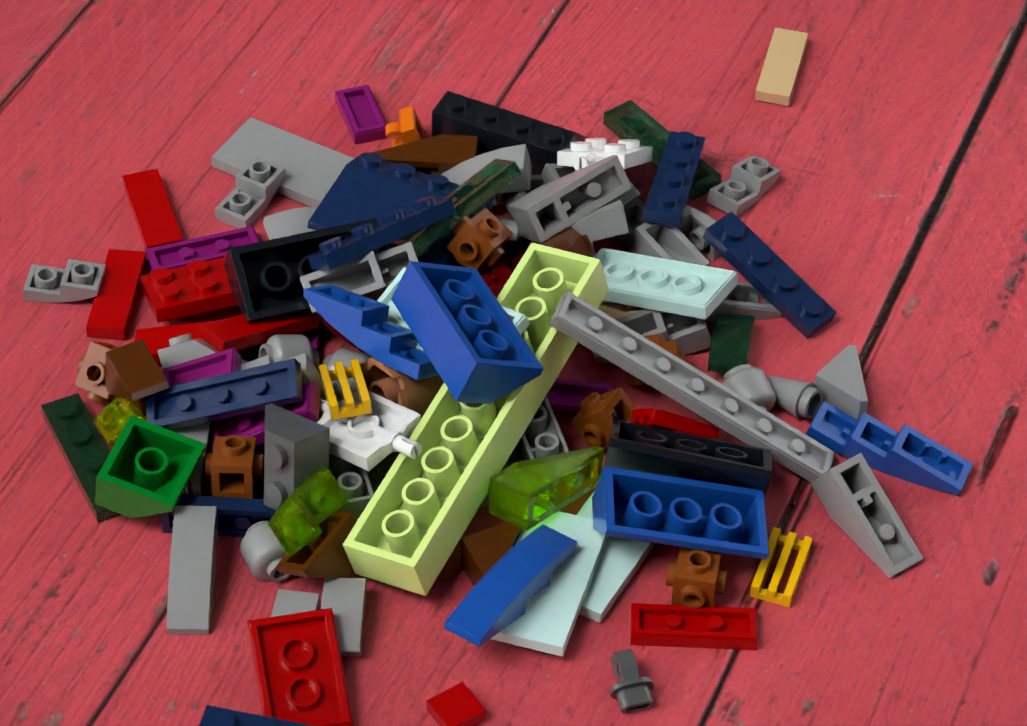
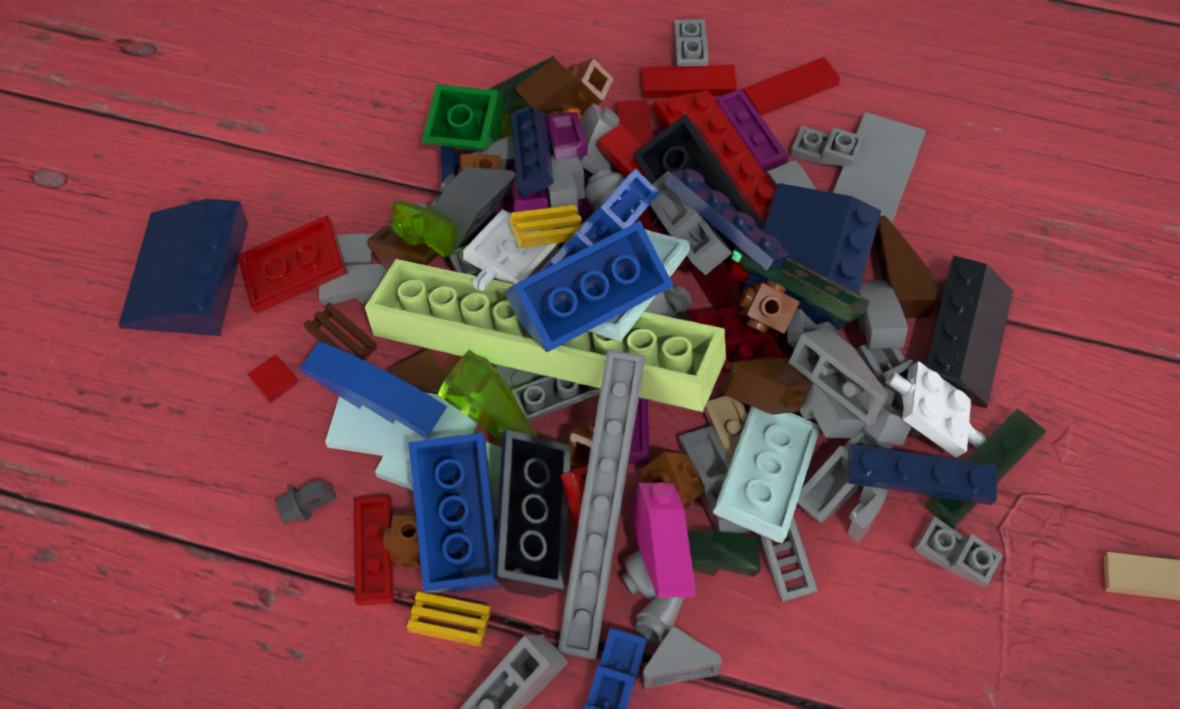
camera: 85 degrees right, 15 degrees up
(192, 570) = (392, 178): light grey slope -> none
(361, 114) = (962, 214): magenta tile -> none
(404, 637) = (344, 322): none -> reddish brown tile
(409, 127) = (939, 250): orange tile -> none
(735, 354) = (663, 539): none -> dark pink slope
(769, 274) = (815, 578): dark blue plate -> none

